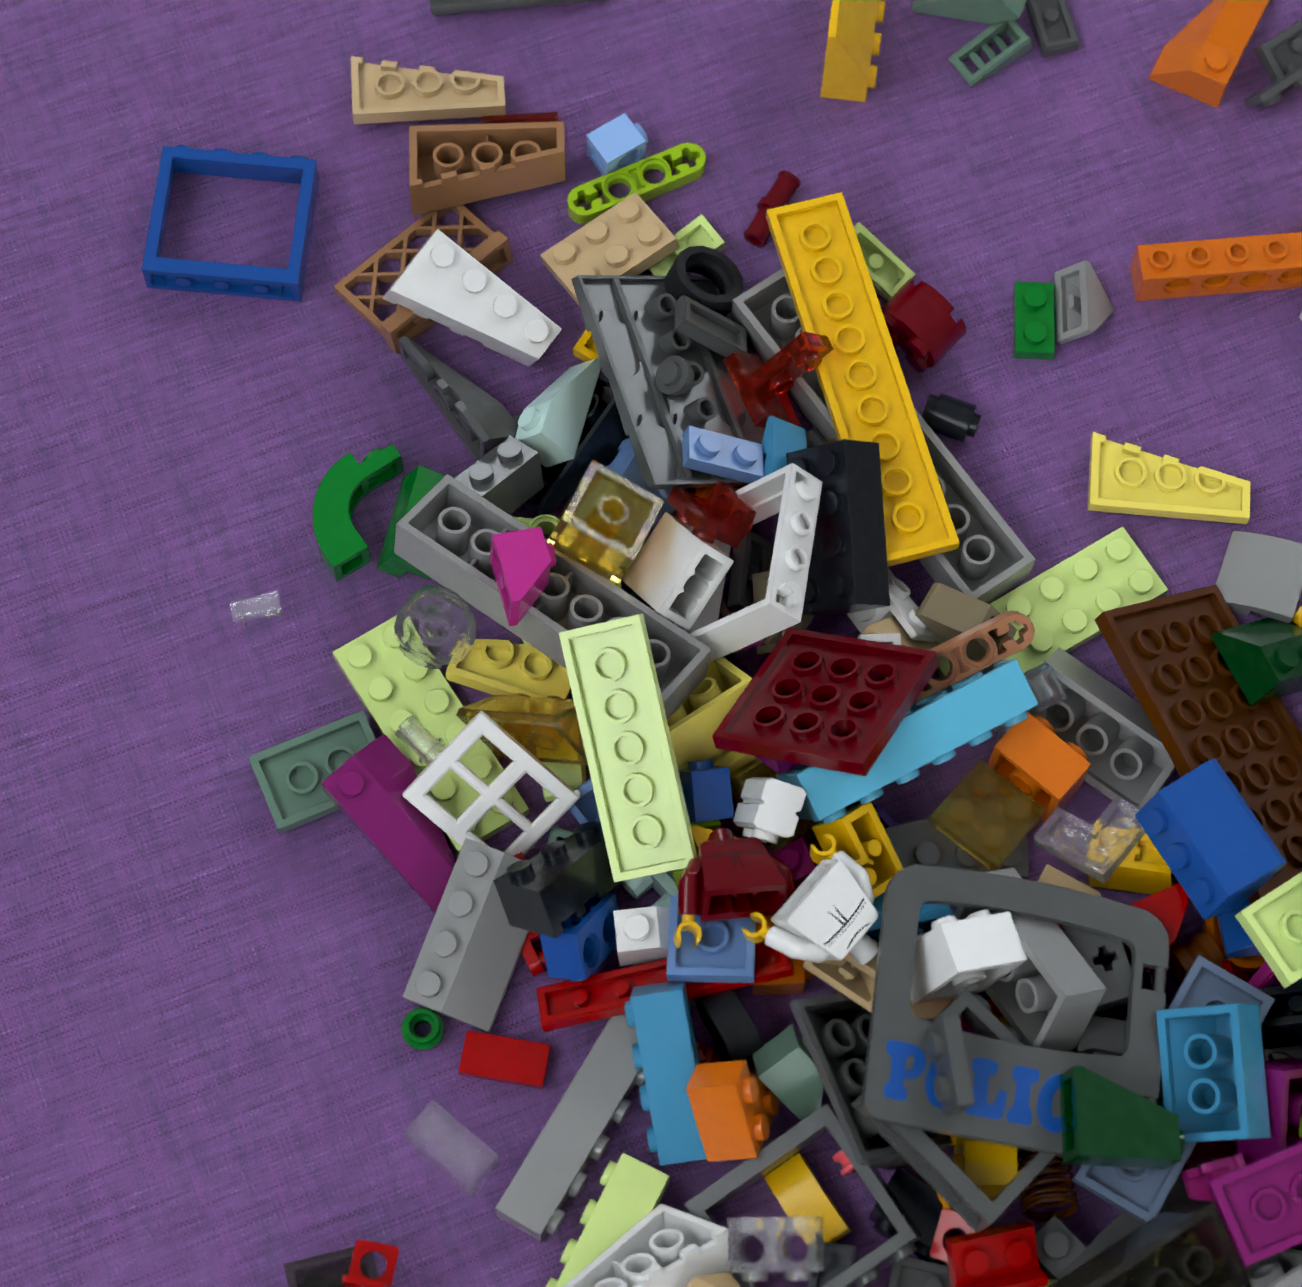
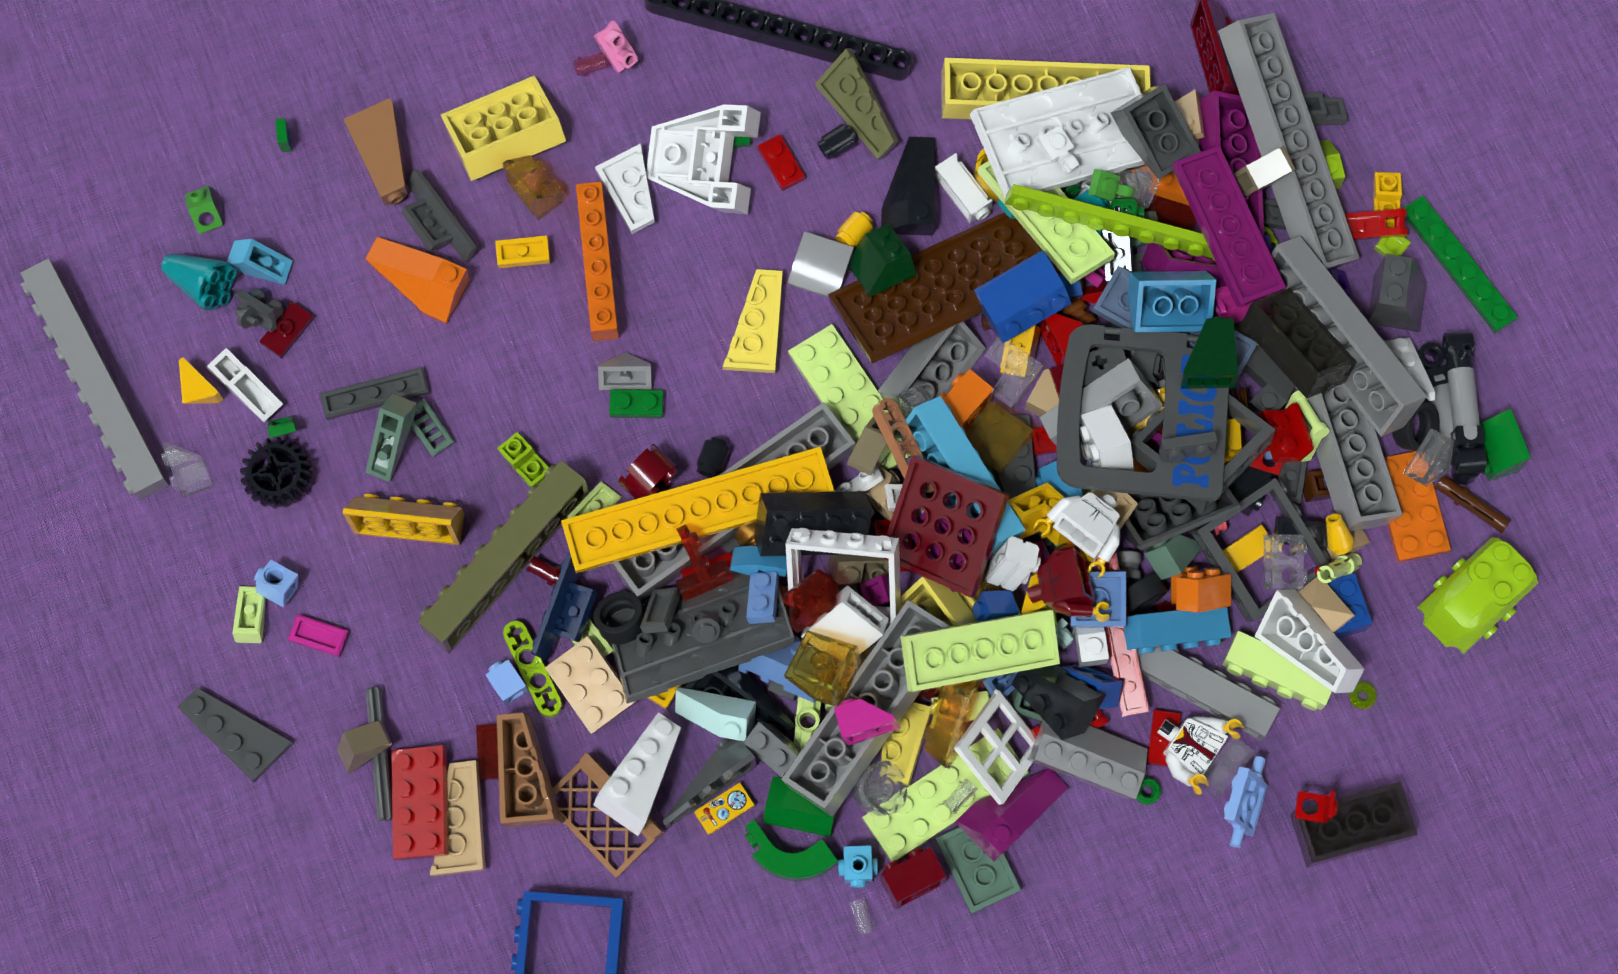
camera: 90 degrees left, 5 degrees up
(303, 668) = (912, 877): none -> dark red brick
(327, 598) = (857, 856): none -> medium azure brick
(391, 1171) = (1246, 801): none -> light blue plate
(425, 428) = (724, 809): none -> yellow tile
(450, 42) = (419, 802): none -> red plate
(482, 1096) = (1195, 747): none -> white torso
(709, 210) = (566, 612): none -> dark blue bracket
(775, 1013) = (1129, 563): none -> light grey wheel
(794, 133) = (503, 556): none -> olive brick
(943, 175) = (523, 459): none -> lime slope
(1261, 169) = (522, 251): none -> yellow plate

